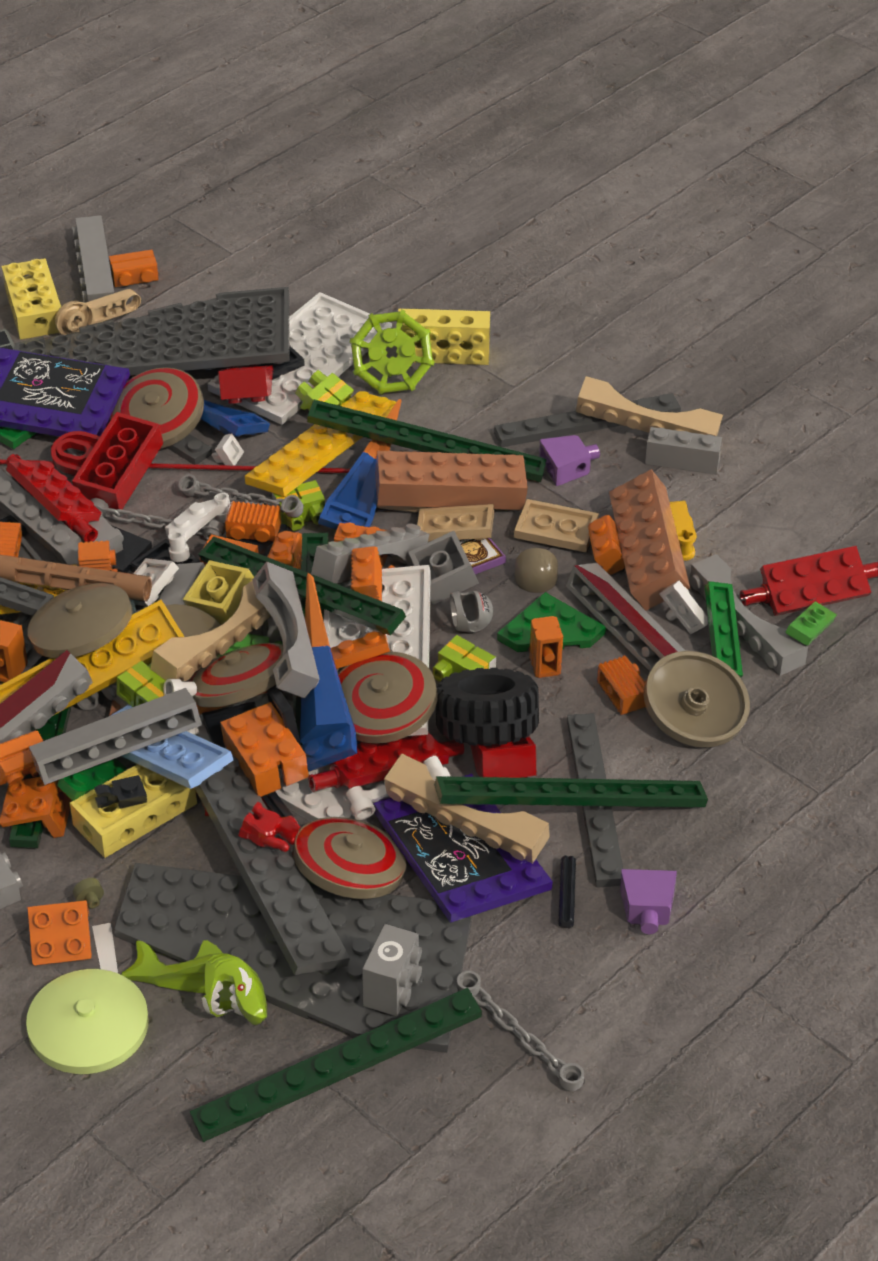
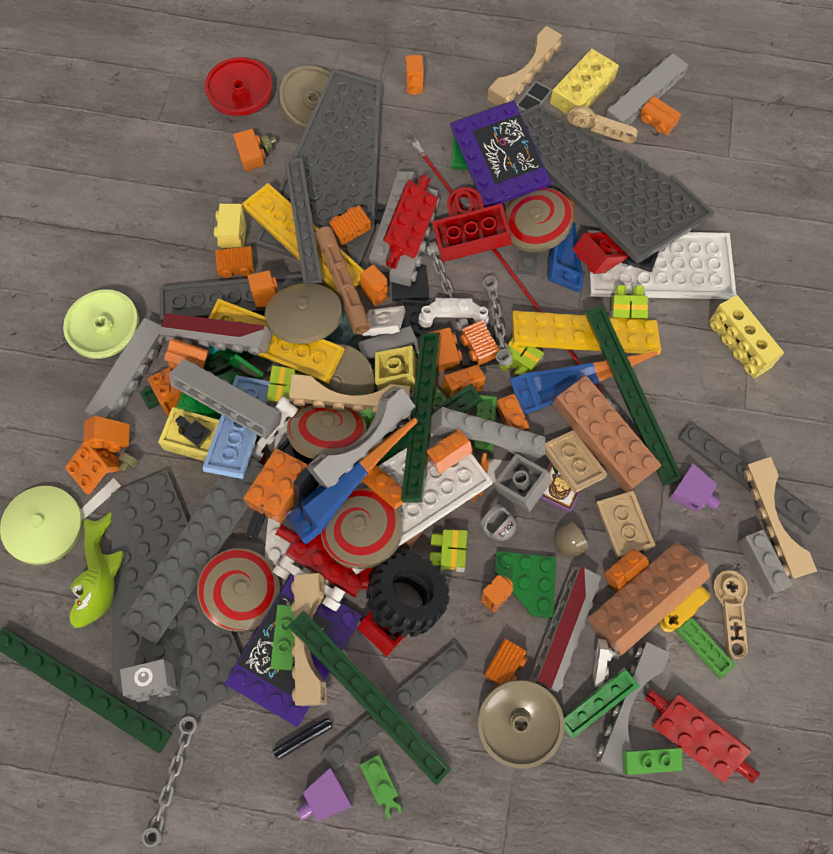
camera: 55 degrees right, 25 degrees up
(37, 885) = (106, 433): none -> orange brick
(83, 713) = (245, 367): none -> green piece
(228, 451) = (538, 284): white tile -> none
(265, 824) = (212, 532): red animal -> none
(378, 355) = (706, 324): lime plate -> none
(443, 839) = (283, 639): none -> bright green plate
(672, 851) = (380, 784): none -> bright green plate
(696, 492) = (732, 609): none -> tan beam
(731, 536) = (705, 647): none -> bright green plate

